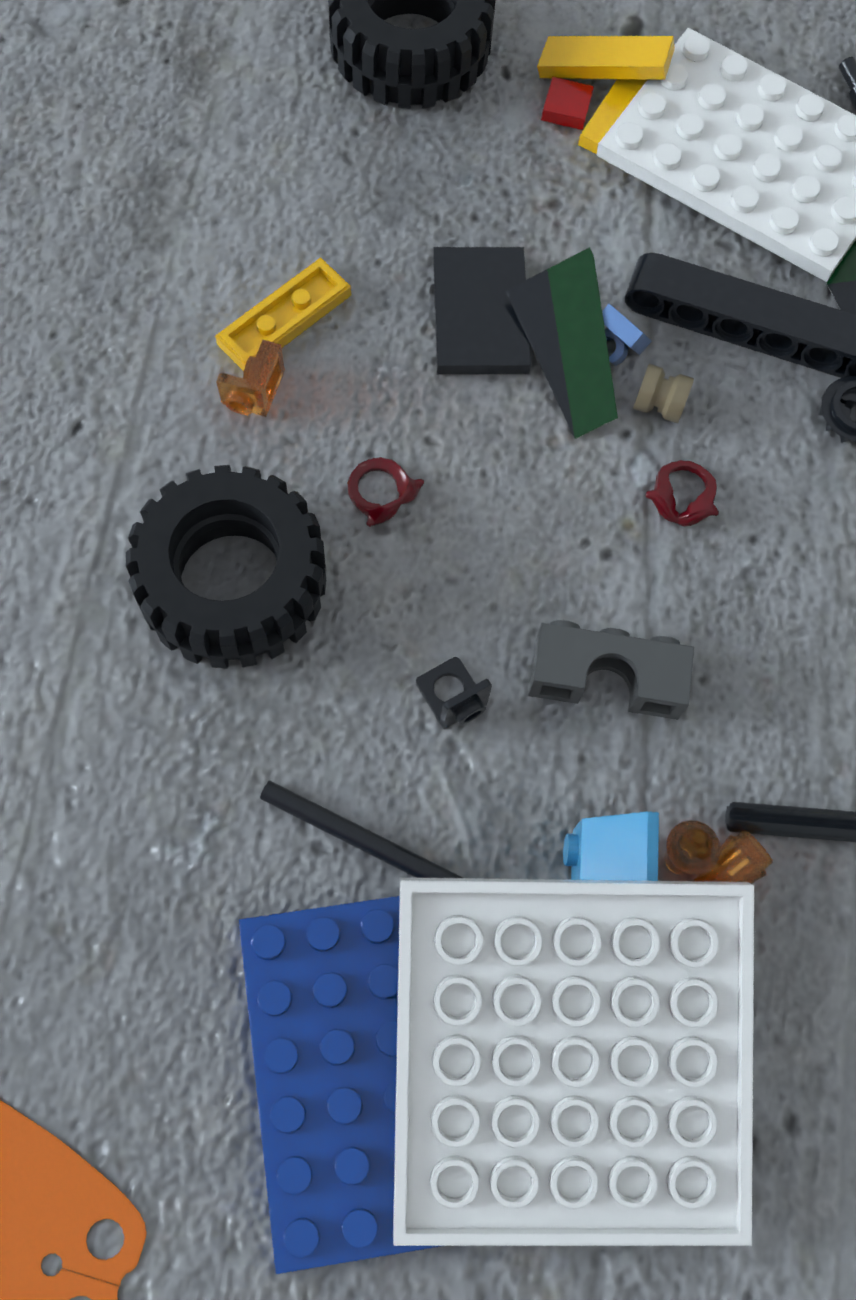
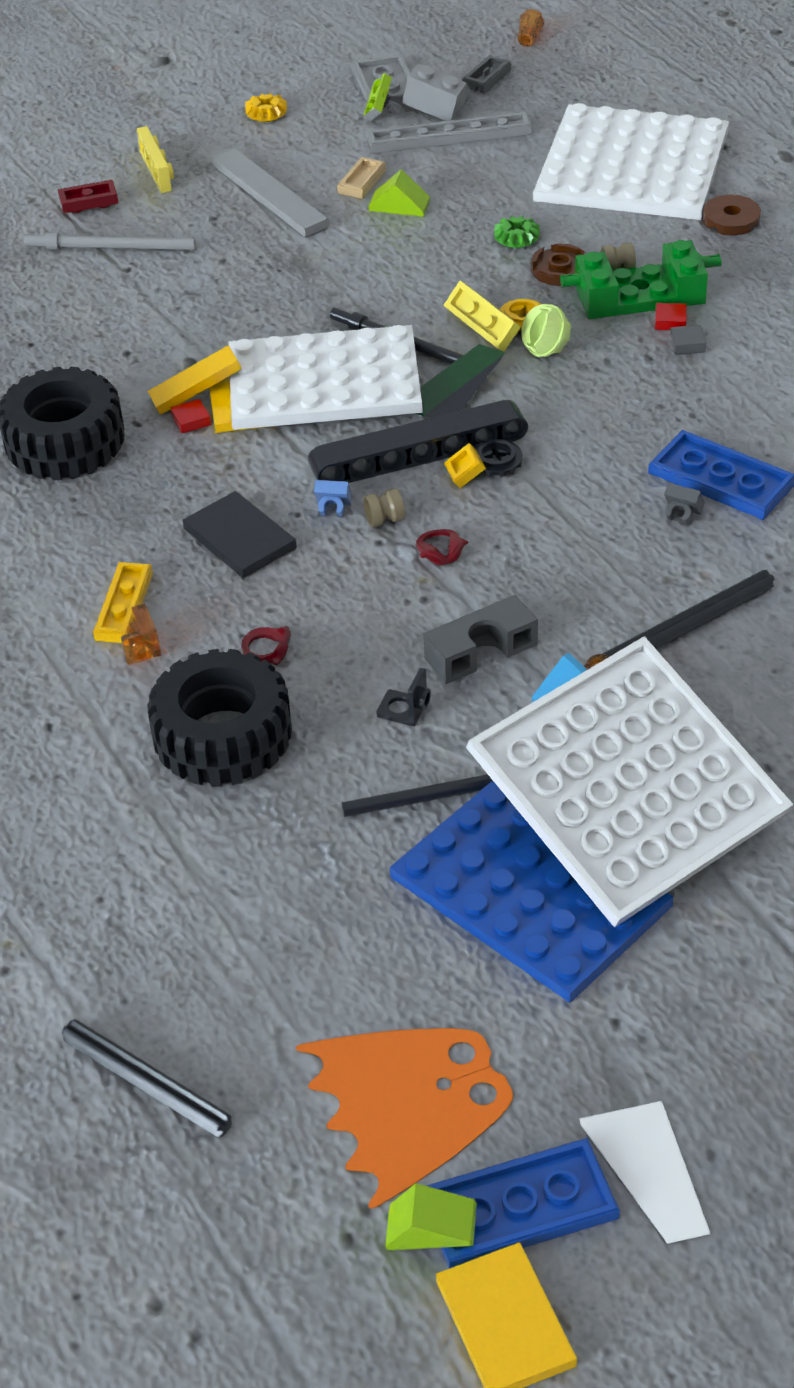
camera: 30 degrees left, 25 degrees down
(568, 335) = (305, 511): dark green sticker -> none
(808, 397) = (464, 465): none -> yellow tile

